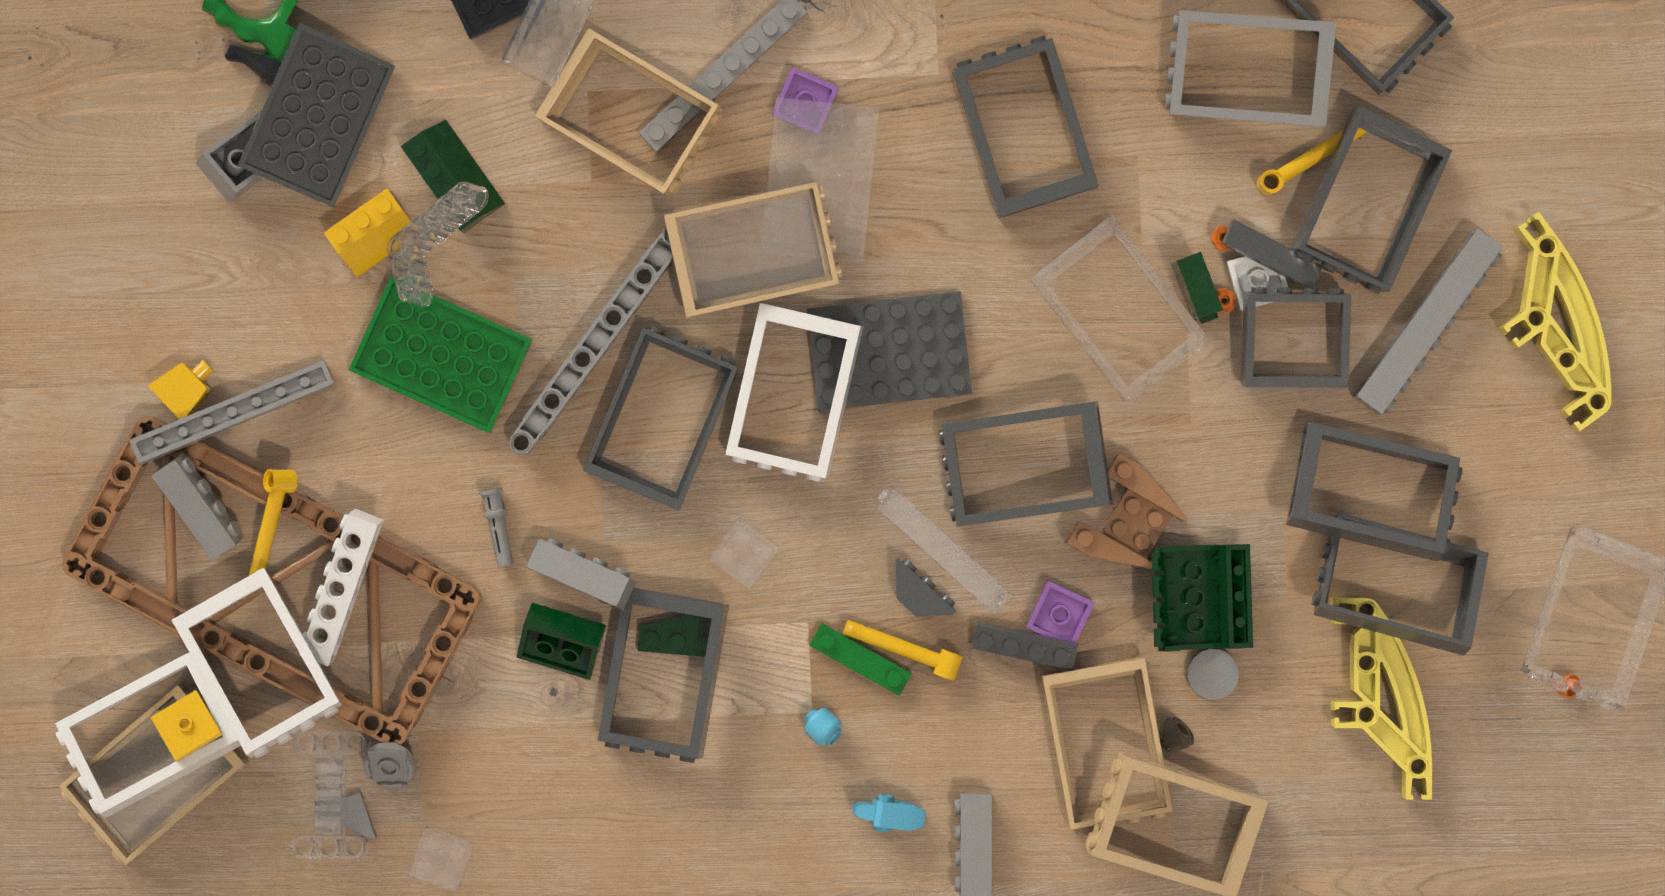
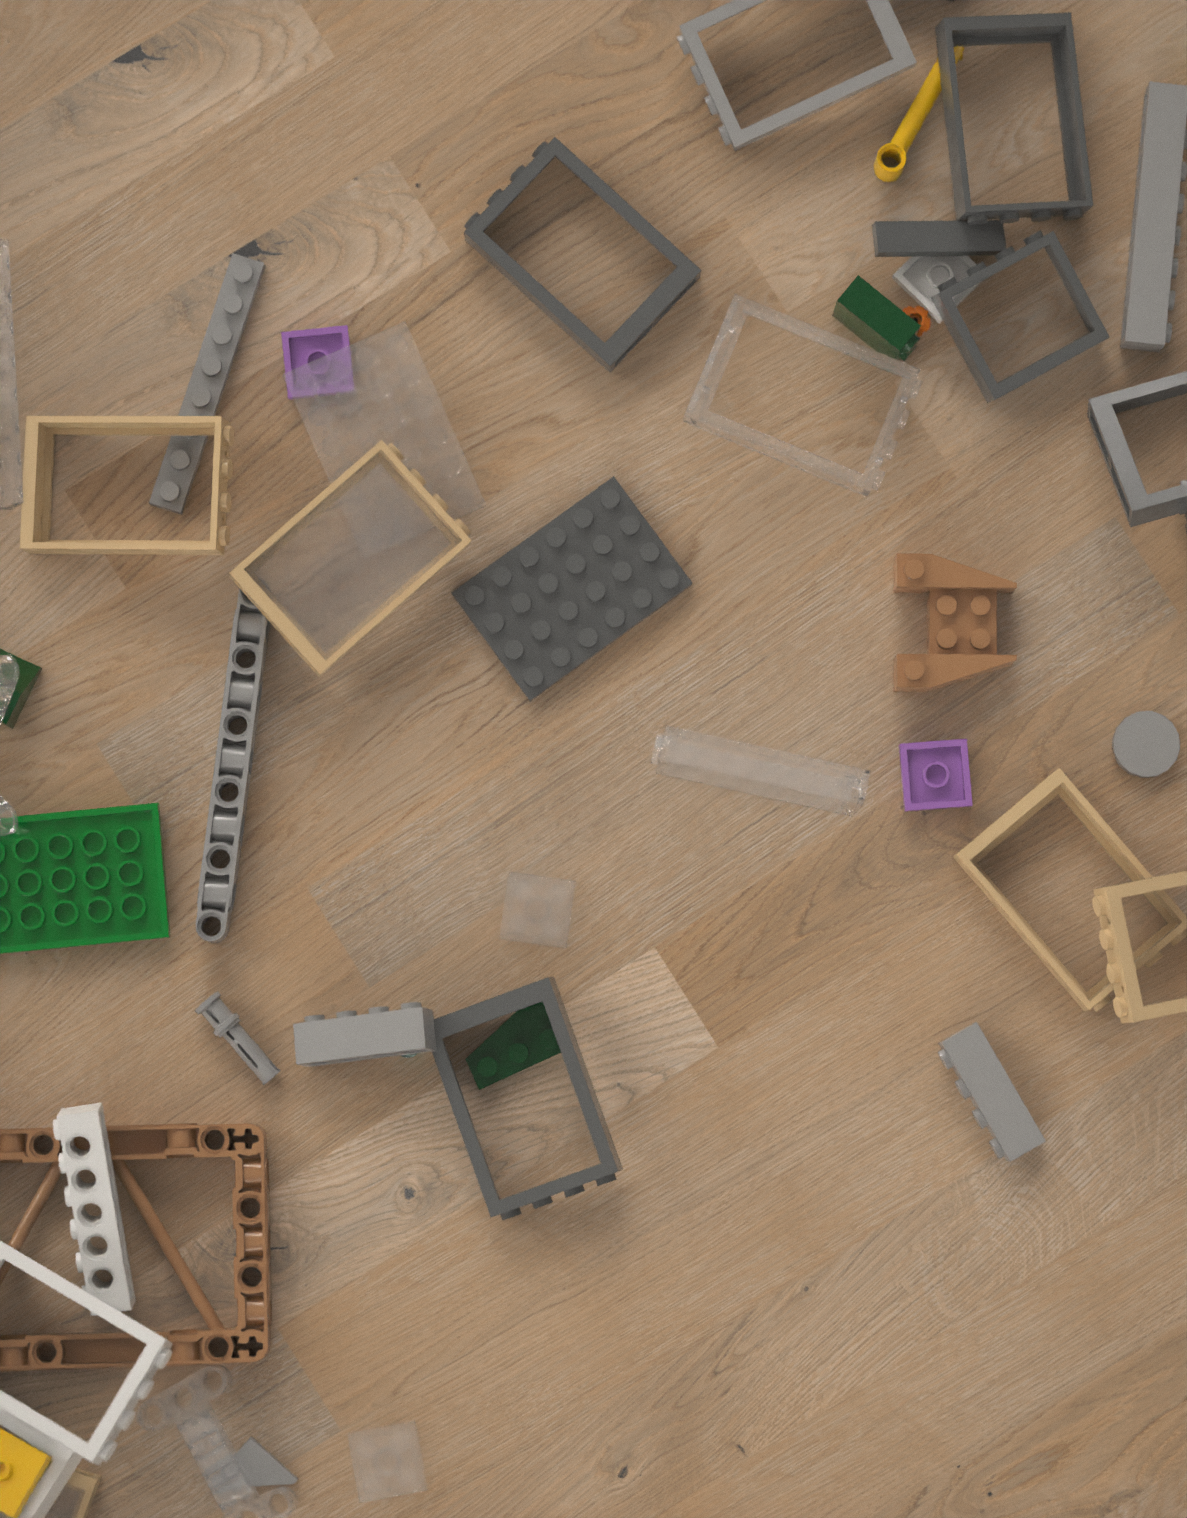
camera: 30 degrees left, 5 degrees down
(389, 765) = (266, 1384): light grey tile -> none
(560, 641) = (384, 1128): dark green slope -> none
(633, 482) = (358, 902): dark grey window -> none
(808, 322) = (461, 603): white window -> none
(822, 727) = (740, 1055): medium azure head -> none
(860, 659) = (739, 954): green plate -> none
(890, 814) = (871, 1112): medium azure hinge -> none
(918, 593) = (761, 841): dark grey slope -> none
(944, 663) = (837, 904): yellow piece -> none
(1024, 645) = (916, 832): dark grey plate -> none
(1095, 454) = (870, 566): dark grey window -> none
(1176, 735) = (1145, 836): clear smoke brick -> none
(1202, 597) = (1085, 662): dark green slope -> none
(1216, 238) = (867, 258): orange plate -> none

